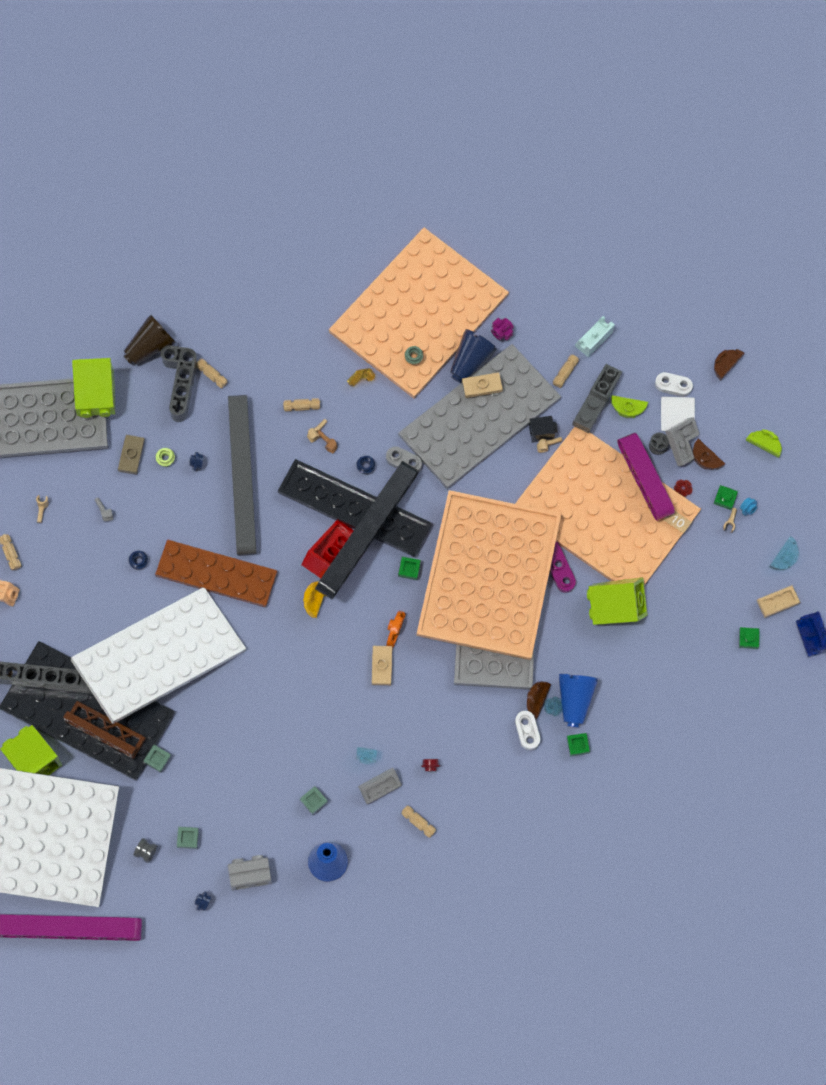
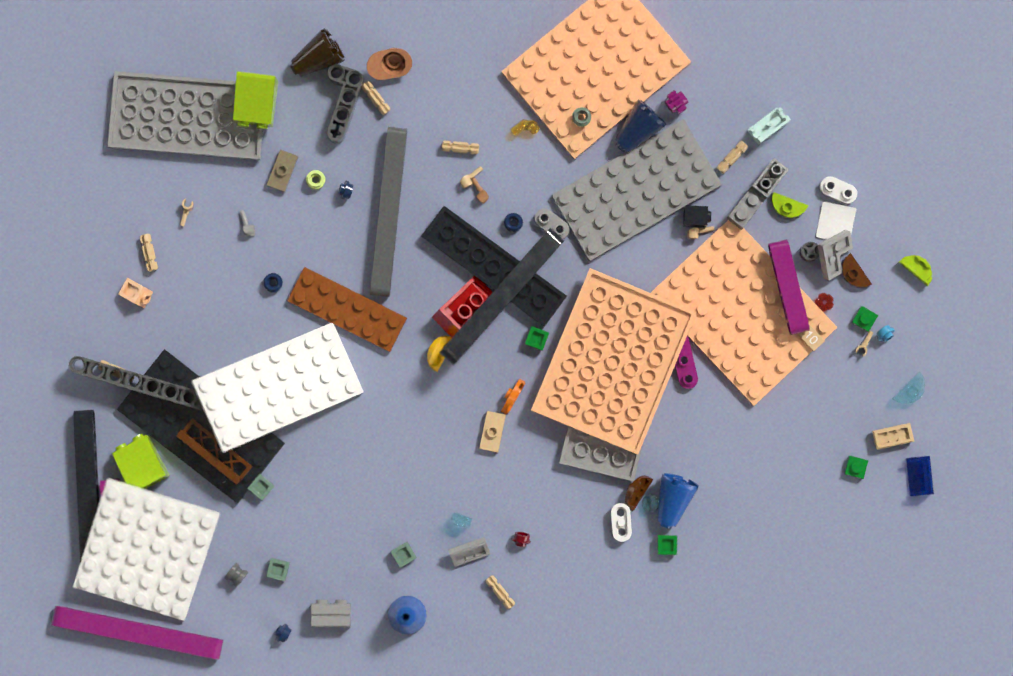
camera: 10 degrees right, 15 degrees up
(219, 337) = (389, 64): none -> nougat piece
(482, 385) = (644, 160): tan plate -> none
(617, 601) = (734, 411): lime slope -> none
(726, 361) = (896, 175): reddish brown plate -> none

